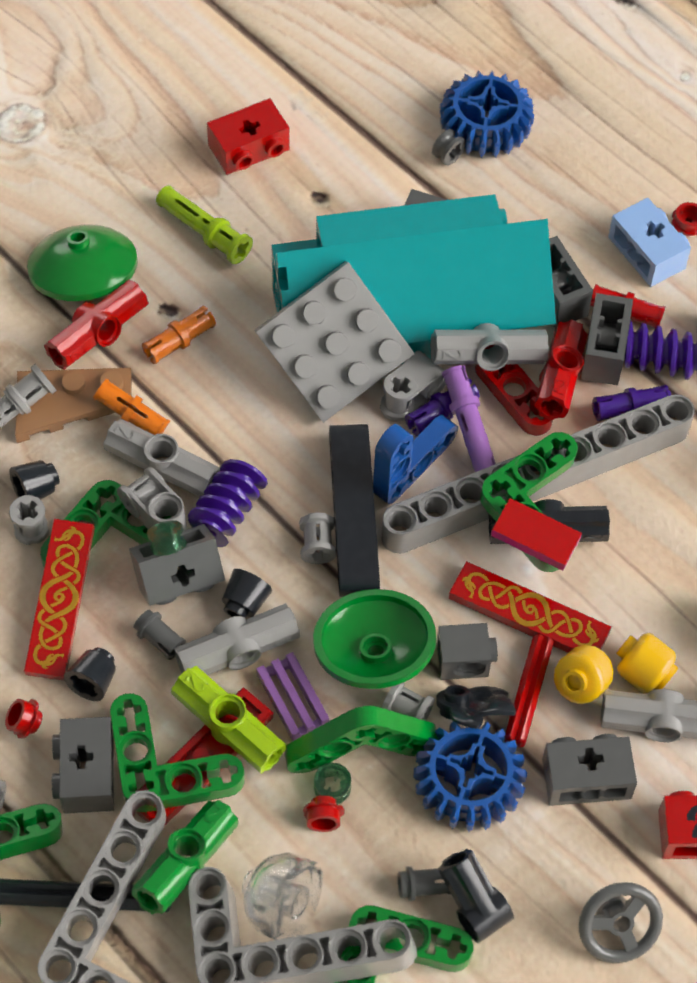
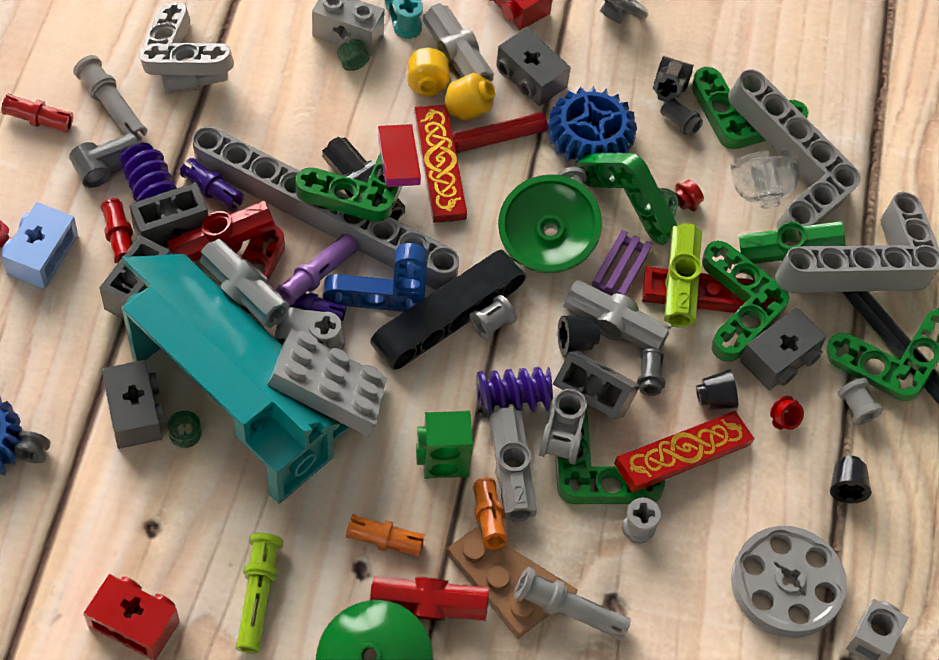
camera: 130 degrees left, 0 degrees up
(34, 479) = (606, 542): black hat -> none
(166, 538) = (593, 372): clear green bush -> none
(212, 404) = (445, 444): none -> green brick
(465, 651) = (503, 173): dark grey brick -> none
(471, 705) = (542, 142): black plate -> none

